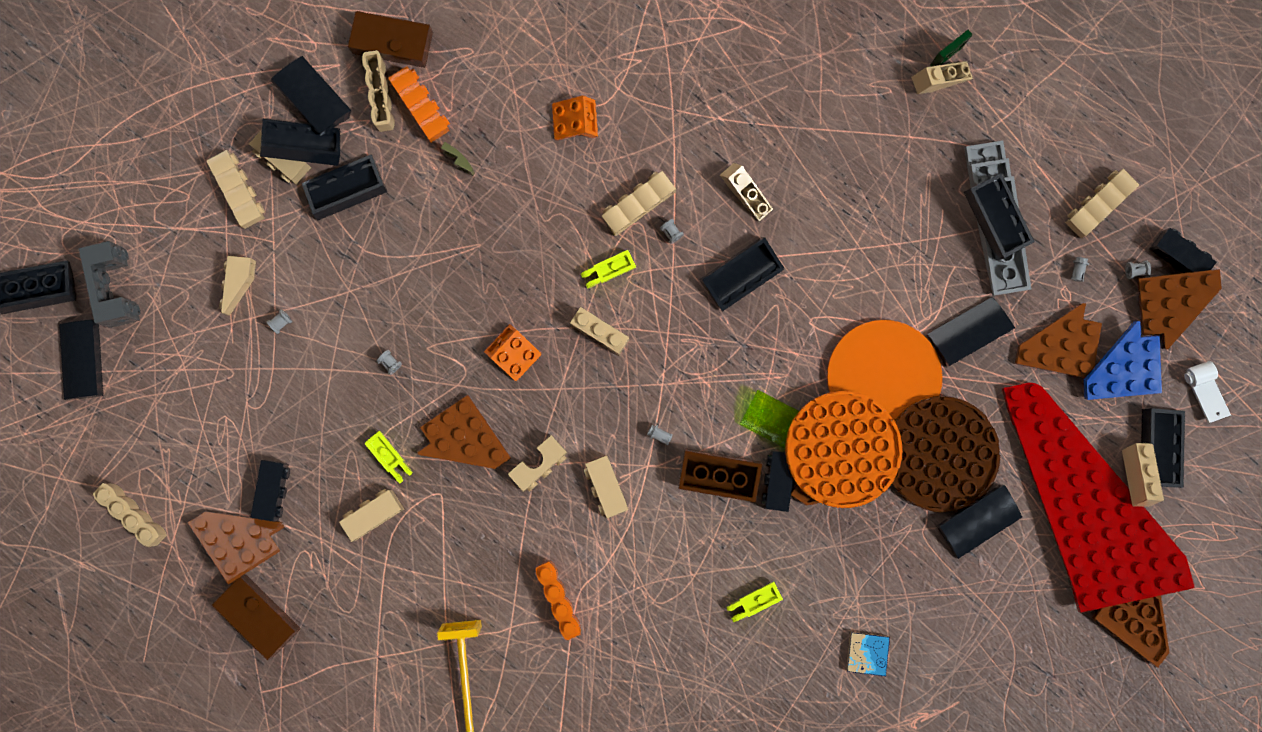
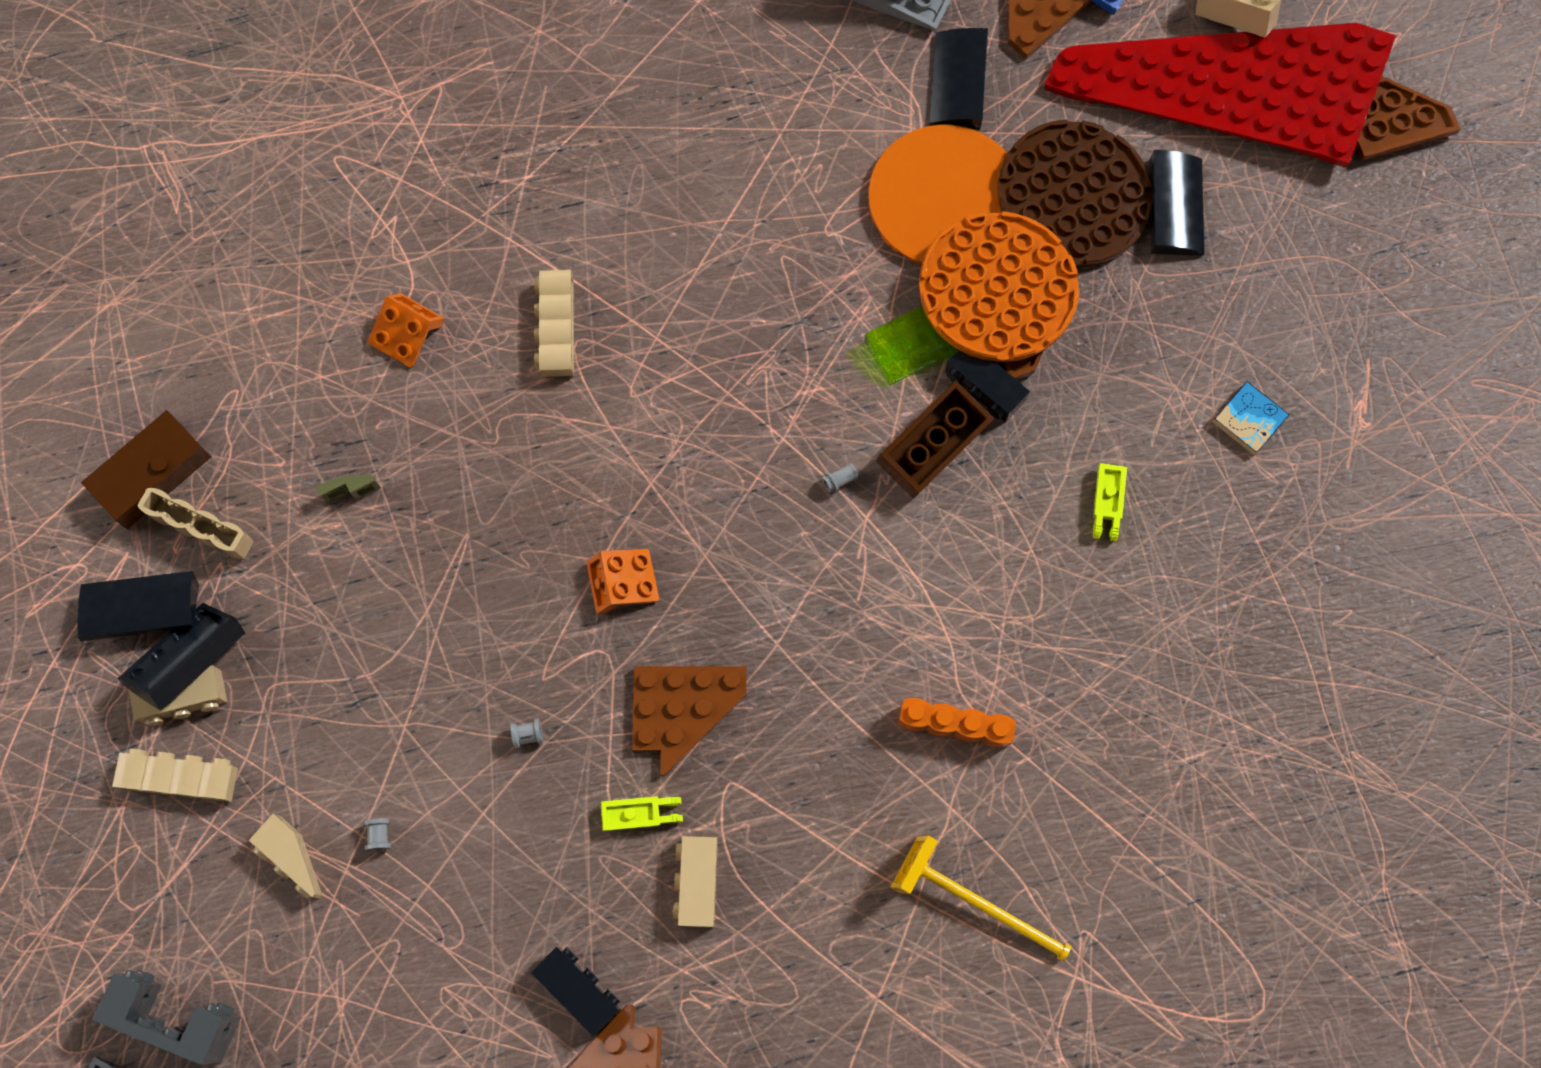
camera: 55 degrees left, 10 degrees down
(344, 187) = (276, 644): black slope -> none
(419, 104) = (248, 489): orange brick -> none
(552, 454) = (781, 662): tan arch -> none
(600, 331) = (655, 467): tan arch -> none
(605, 487) = (859, 577): tan brick -> none
(610, 268) = (607, 404): neon yellow hinge -> none
(671, 231) = (615, 309): light grey bush -> none
(742, 273) = (720, 267): black slope -> none
(746, 191) = (629, 200): tan slope -> none

